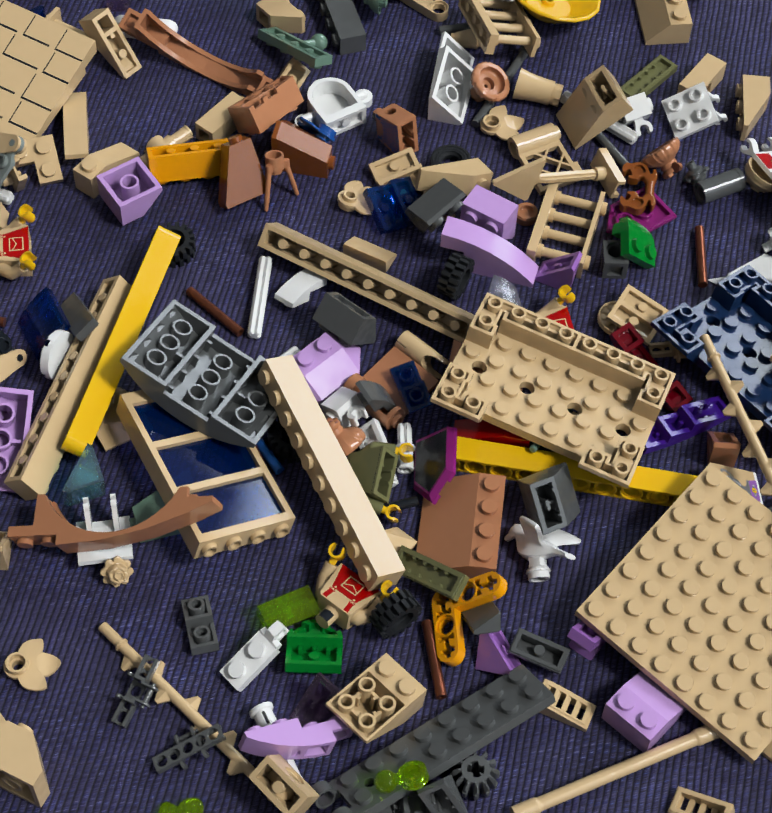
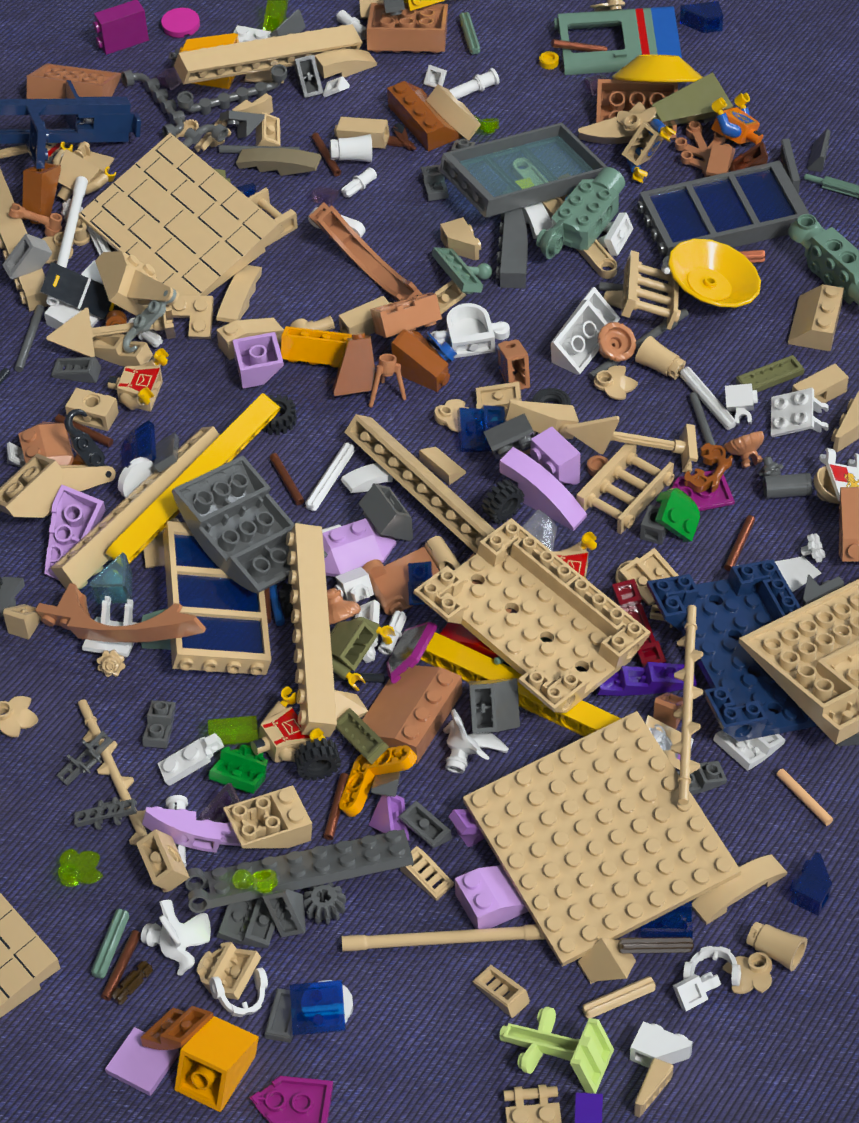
camera: 25 degrees right, 5 degrees down
(110, 41) = (297, 228): tan slope -> none
(374, 395) = (382, 580): dark grey slope -> none
(539, 142) = (639, 406): tan piece -> none
(559, 270) = (600, 522): medium lavender slope -> none
(593, 107) = (700, 385): tan slope -> none

